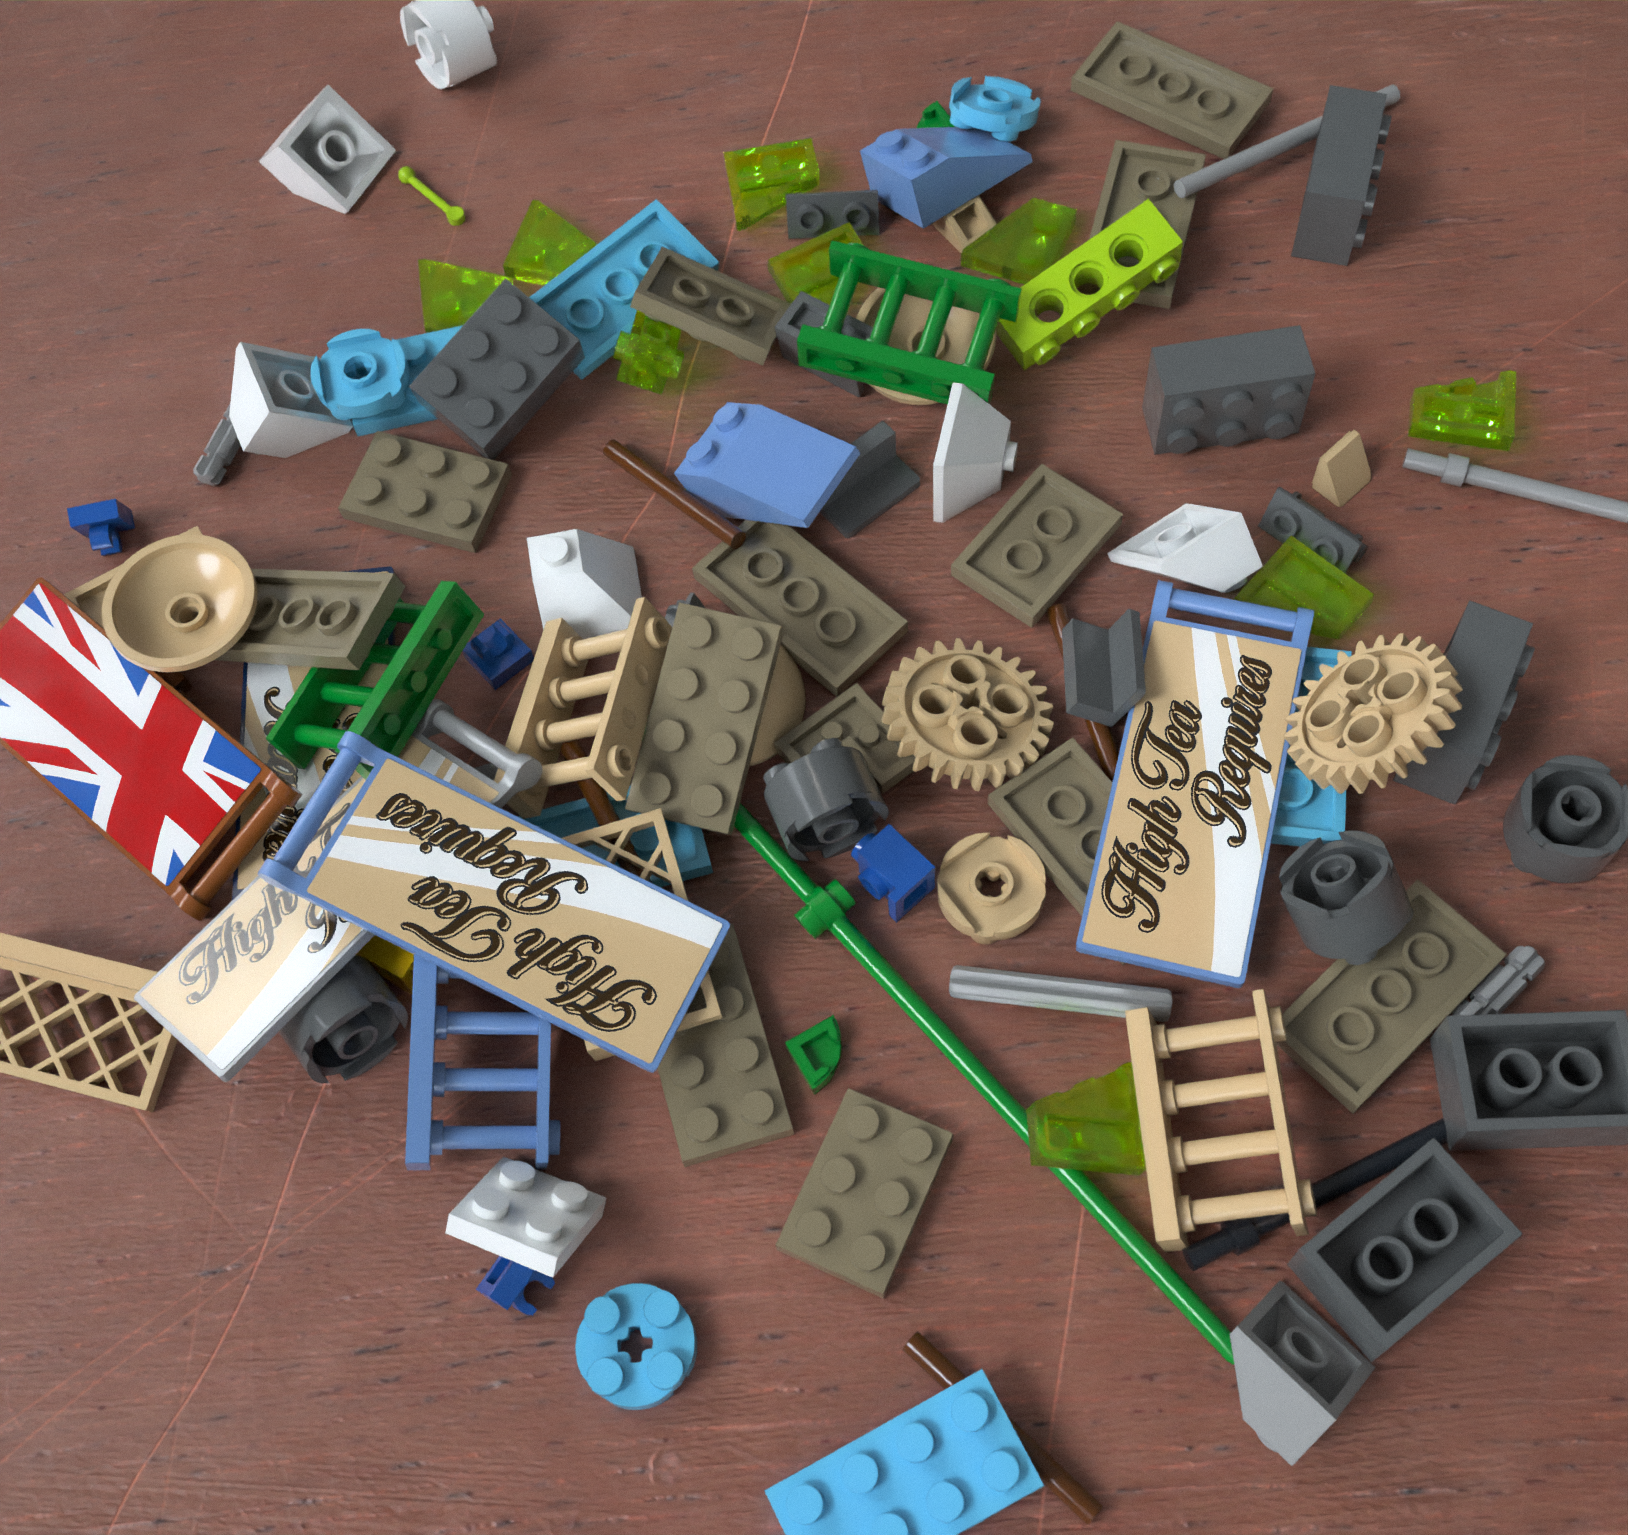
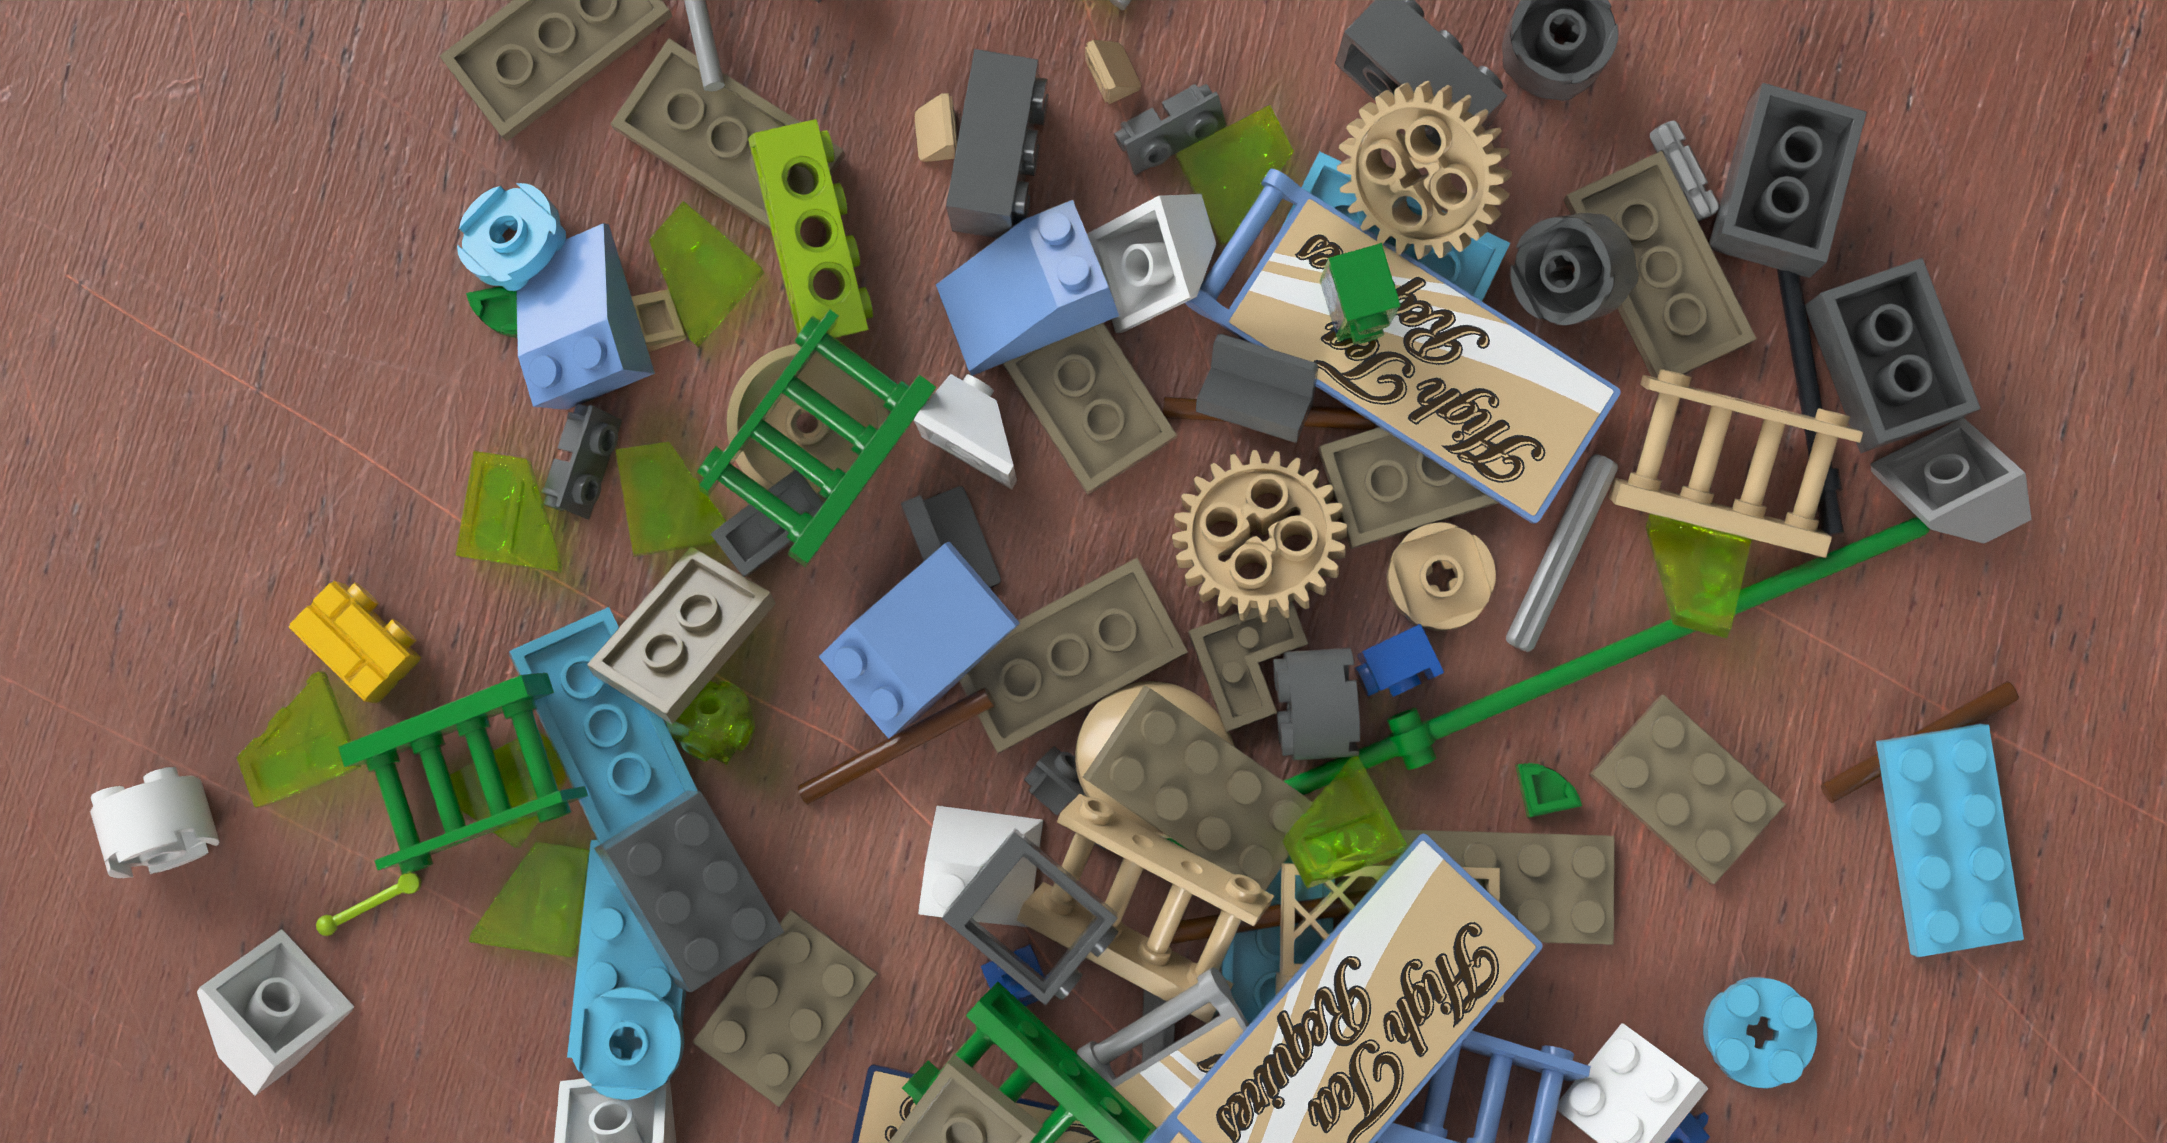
camera: 75 degrees left, 20 degrees up
(539, 112) = (297, 746): none -> clear neon green wing
(559, 559) = (1064, 974): none -> dark grey window
(567, 168) = (425, 737): none -> green fence
(632, 116) = (356, 640): none -> yellow brick
(708, 847) = (1343, 829): none -> clear neon green wing
(1117, 464) = (1027, 290): none -> medium blue slope
(1226, 692) = (1360, 294): none -> green brick

